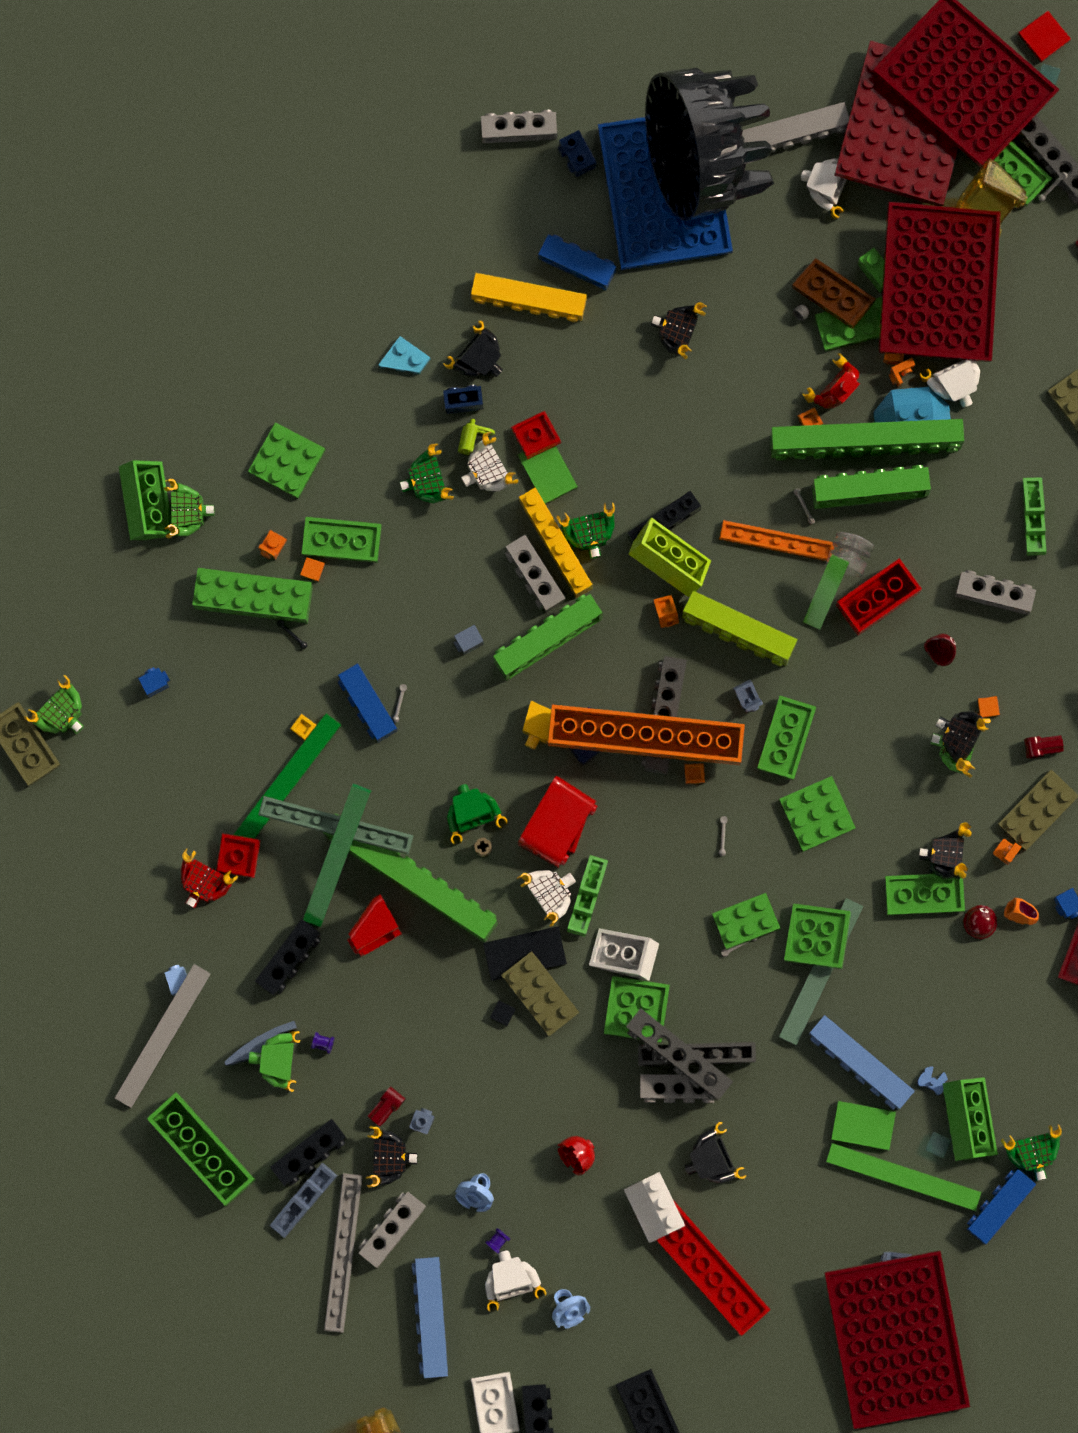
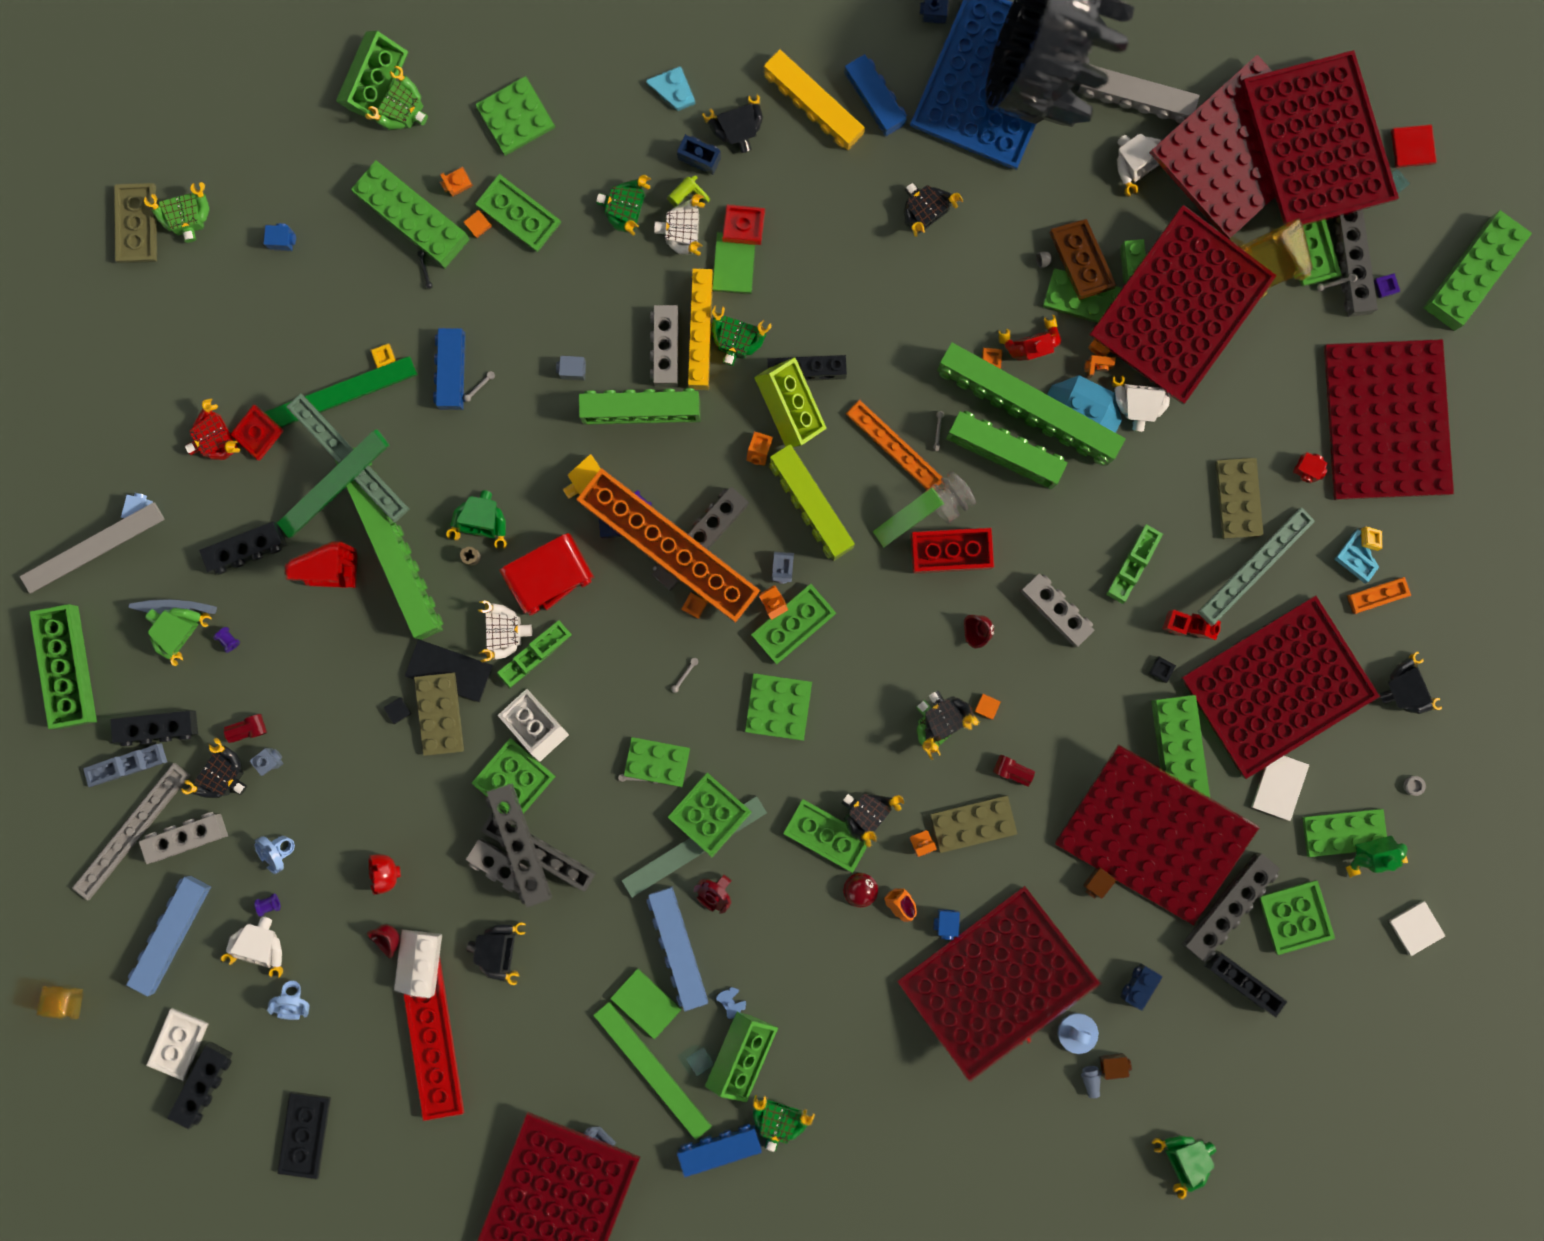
camera: 30 degrees right, 5 degrees up
(614, 1207) = (385, 938): none -> dark red helmet
(759, 729) = (773, 602): none -> orange bracket
(862, 999) = (713, 894): none -> dark red tile

